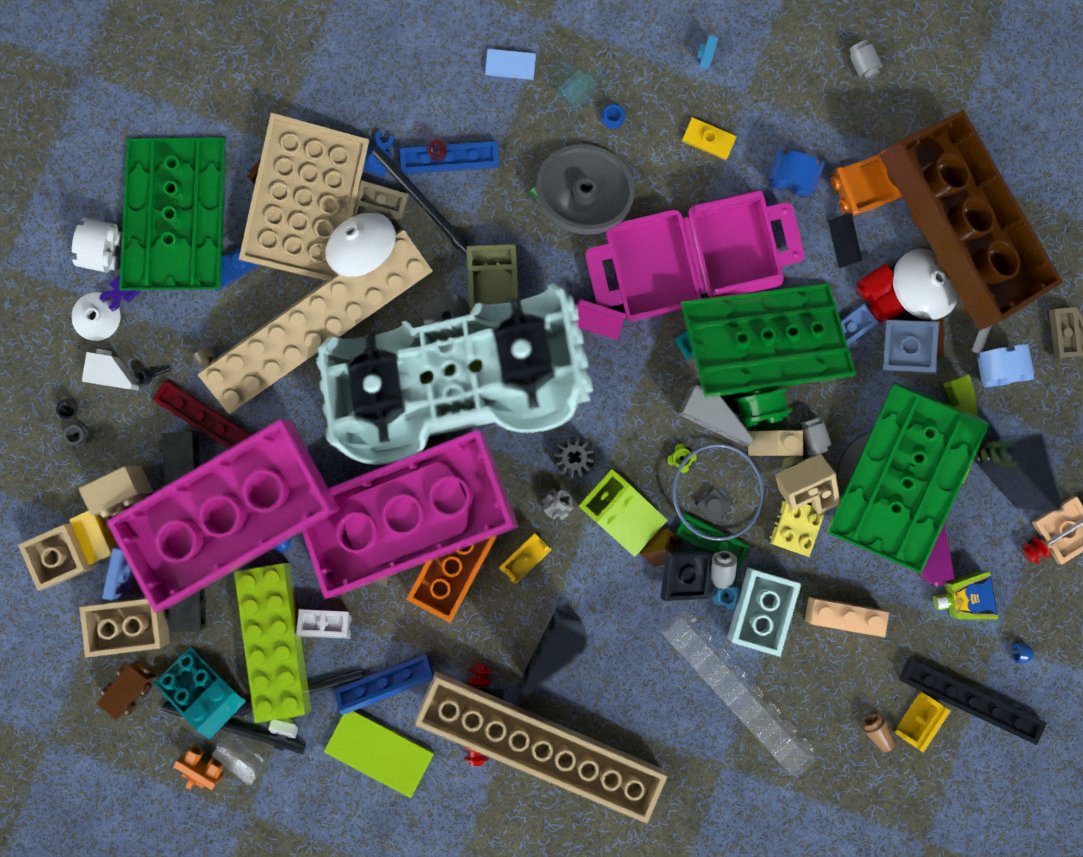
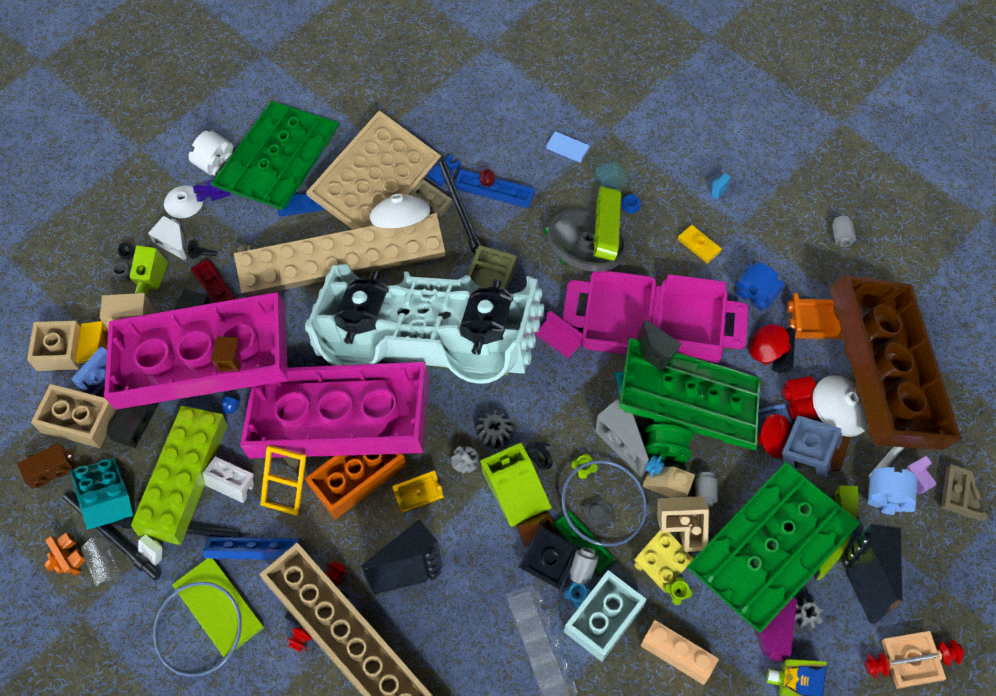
camera: 25 degrees right, 25 degrees down
(106, 420) = (147, 269): none -> lime torso
(264, 521) = (224, 354): none -> reddish brown panel
(383, 608) = (267, 476): none -> yellow window
(390, 744) = (233, 648): none -> sand blue piece
(600, 159) = (607, 223): none -> lime beam
(628, 473) = (531, 450): none -> black piece
(715, 303) = (656, 345): none -> pearl dark grey slope
(758, 434) = (655, 465): none -> dark azure plate
(827, 557) = (684, 593): none -> lime plate
(828, 241) = (769, 343): none -> red dish
(868, 348) = (774, 434): none -> red dish
(964, 526) = (814, 615): none -> light grey gear
(1024, 331) = (924, 479): none -> lavender panel

